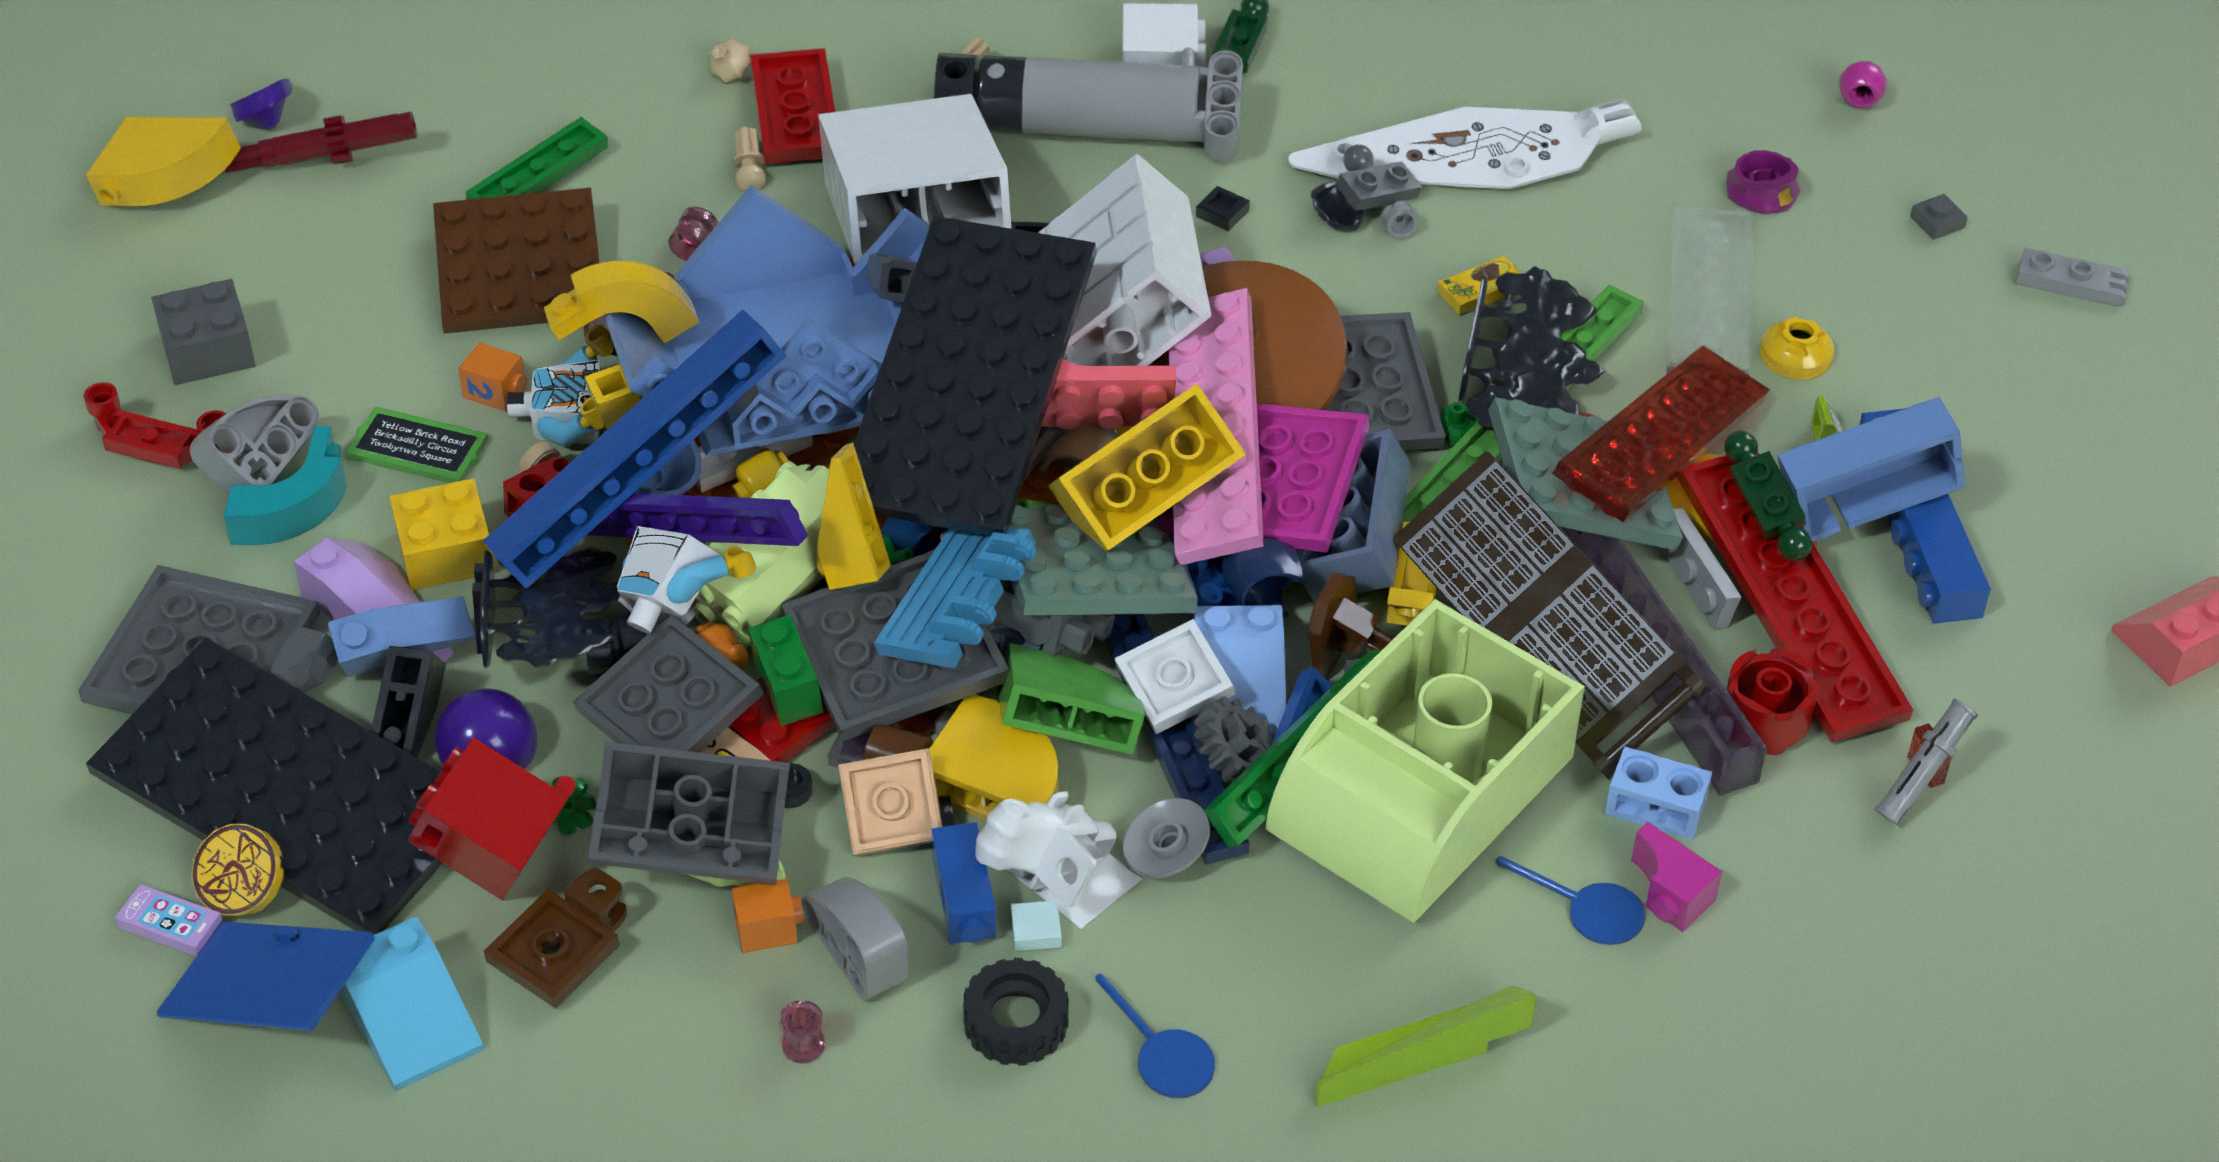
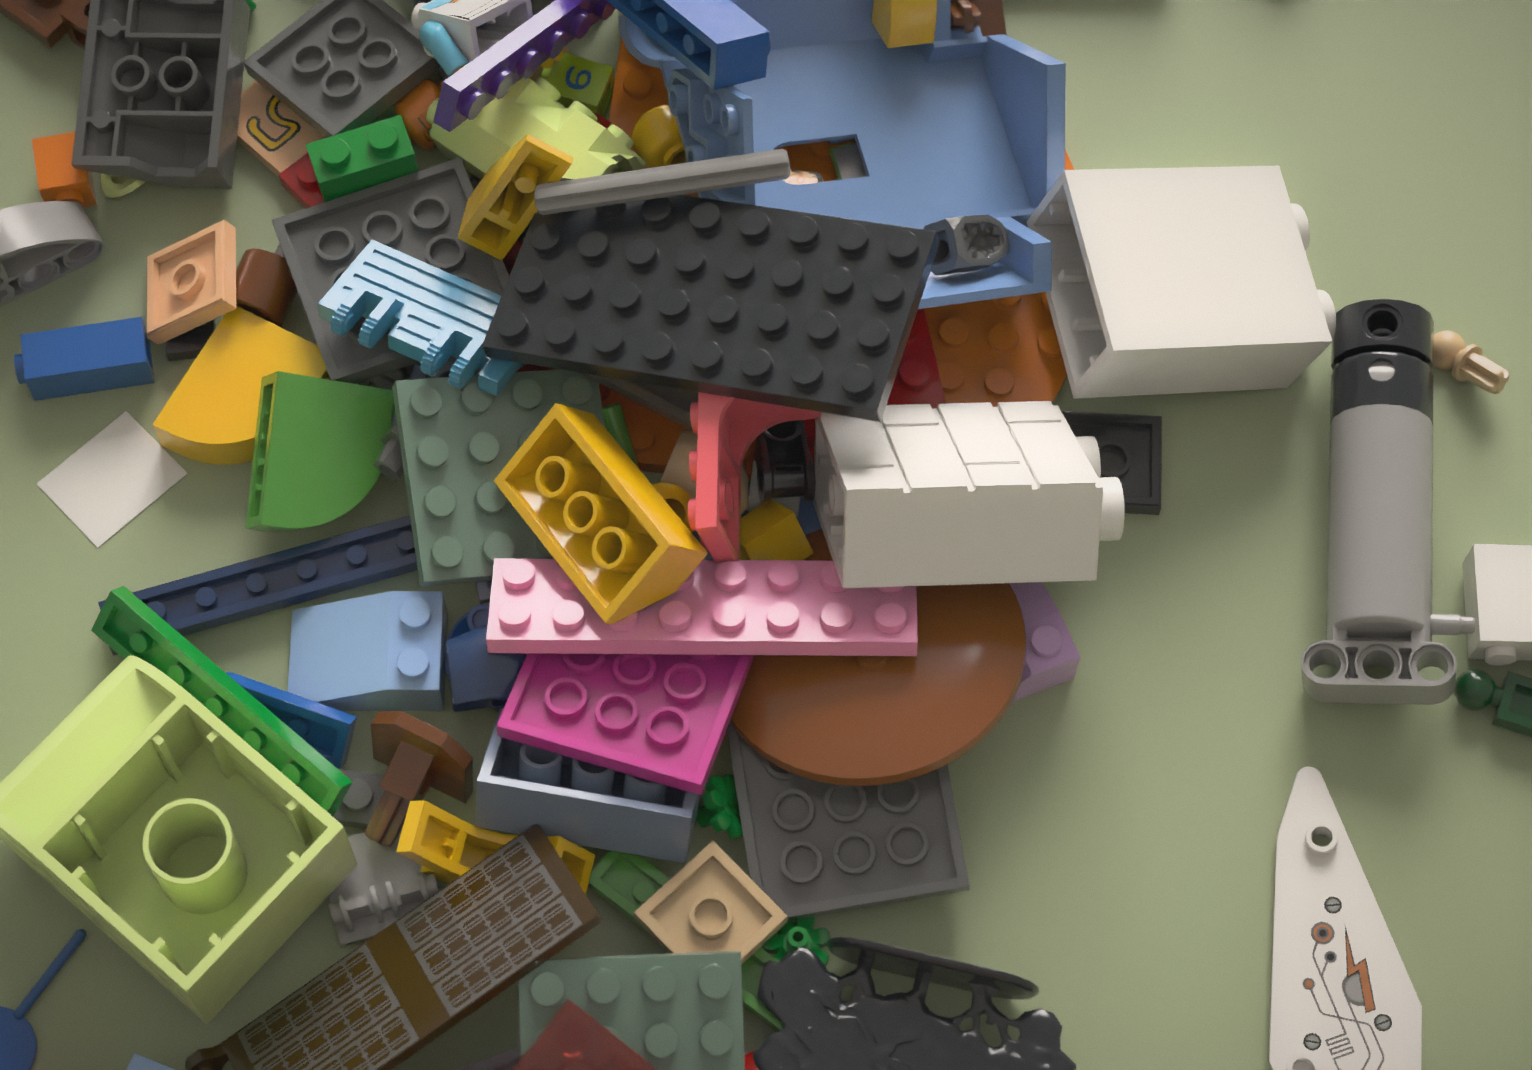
camera: 90 degrees right, 20 degrees up
(691, 231) = (1127, 69): clear pink wheel -> none
(729, 60) = (1450, 92): tan piece -> none
(748, 160) = (1239, 130): tan axle -> none
(789, 96) = (1375, 169): red plate -> none
(798, 786) = (253, 197): black tile -> none
(867, 396) = (662, 181): none -> light grey axle
(1036, 925) = (34, 435): light aqua tile -> none
(1047, 842) = (109, 429): white piece -> none
(1166, 837) = (124, 556): light grey dish -> none
(1174, 675) = (331, 565): white plate -> none
(1222, 208) = (1208, 679): black tile -> none
(1231, 736) = (228, 625): dark grey gear -> none
(1335, 208) = (1213, 822): black piece -> none
(1374, 186) = (1245, 871): dark grey plate -> none
(1402, 227) = (1186, 902): light grey plate -> none
(1447, 444) = (711, 909): none -> tan plate
(1463, 289) = (1070, 999): yellow tile -> none

